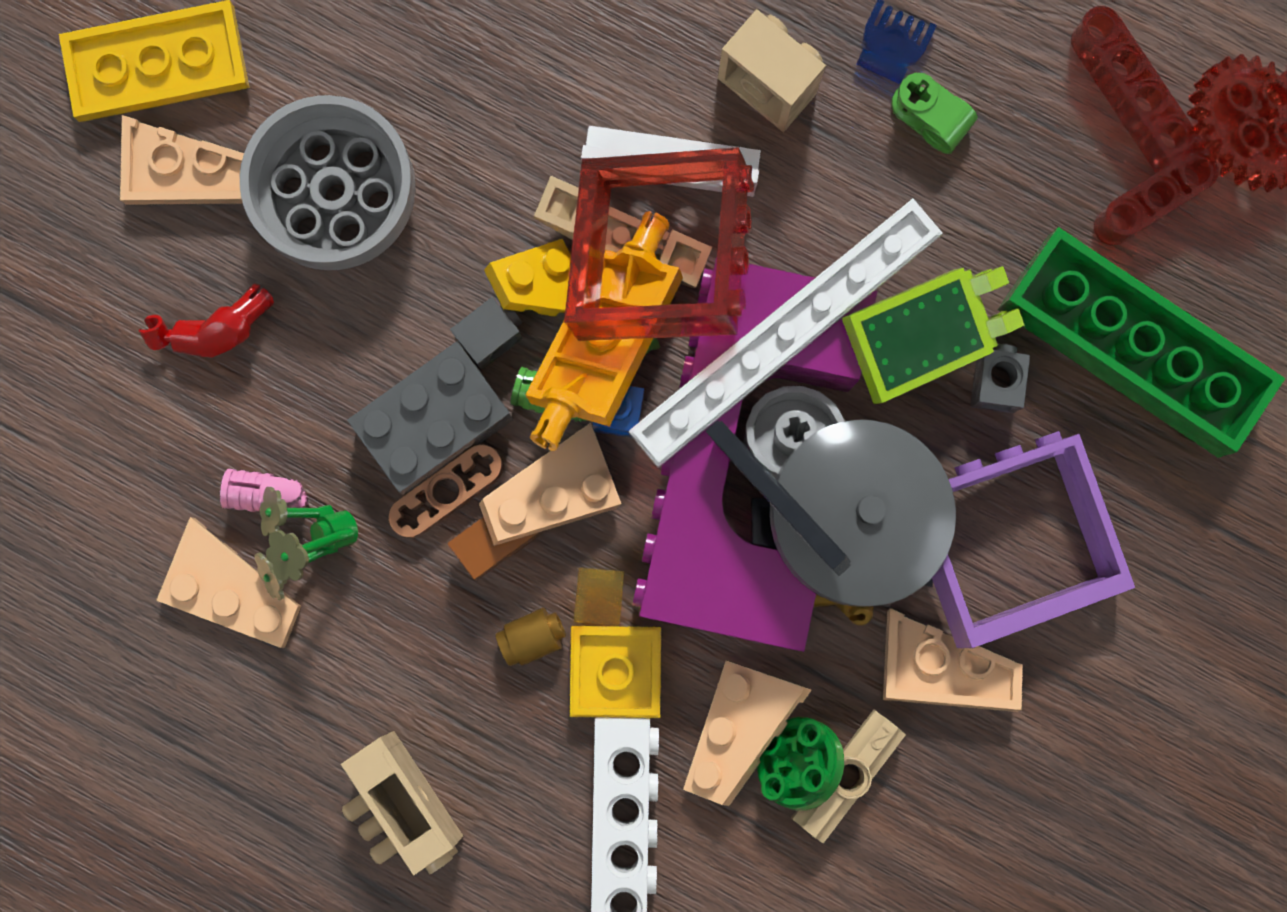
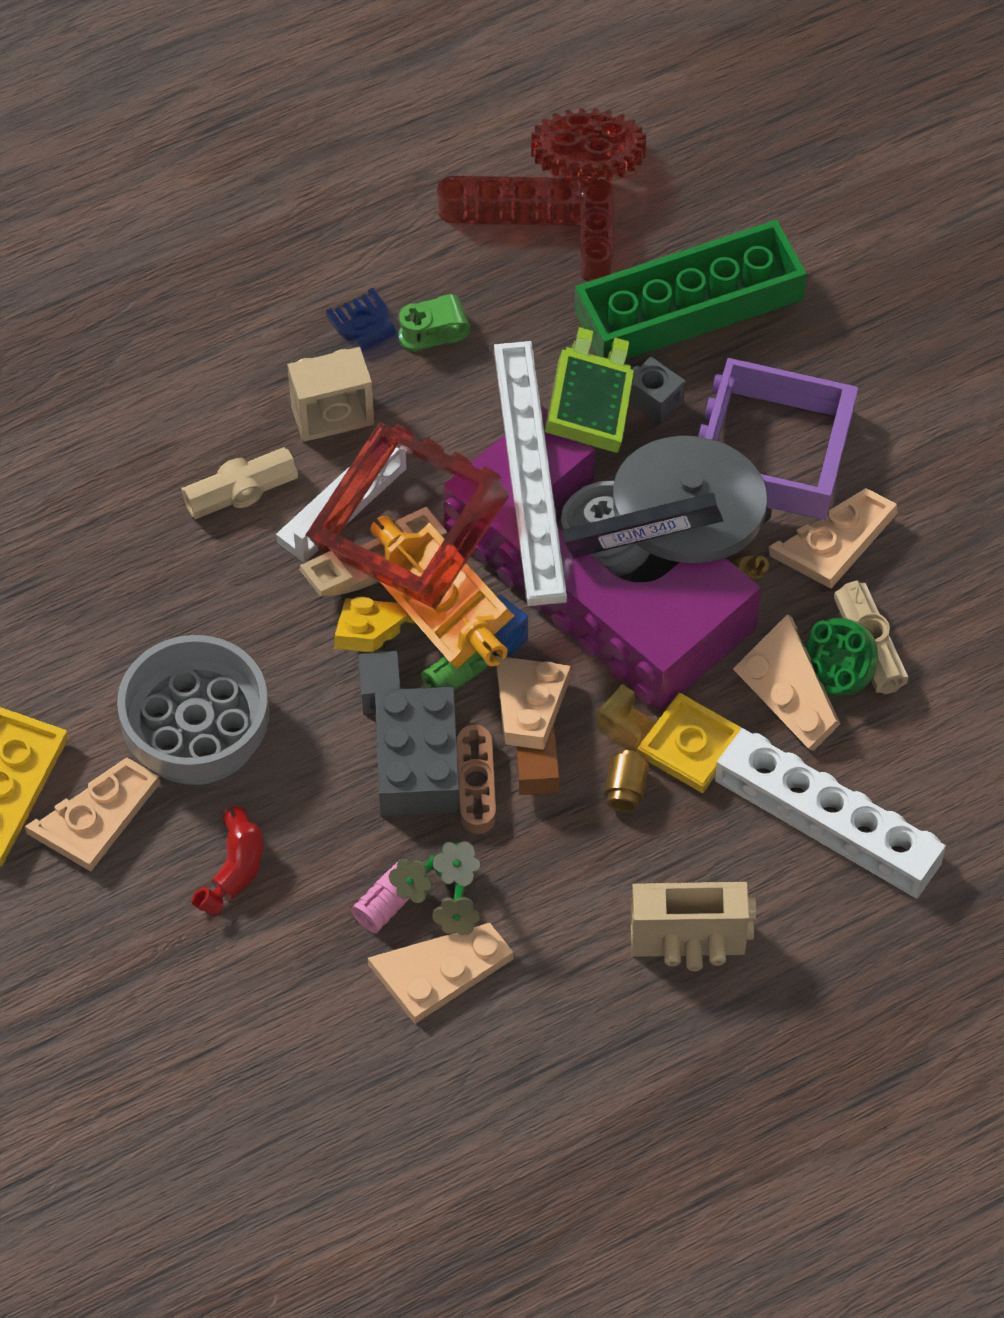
camera: 55 degrees left, 25 degrees down
(622, 52) = (239, 483): none -> tan piece

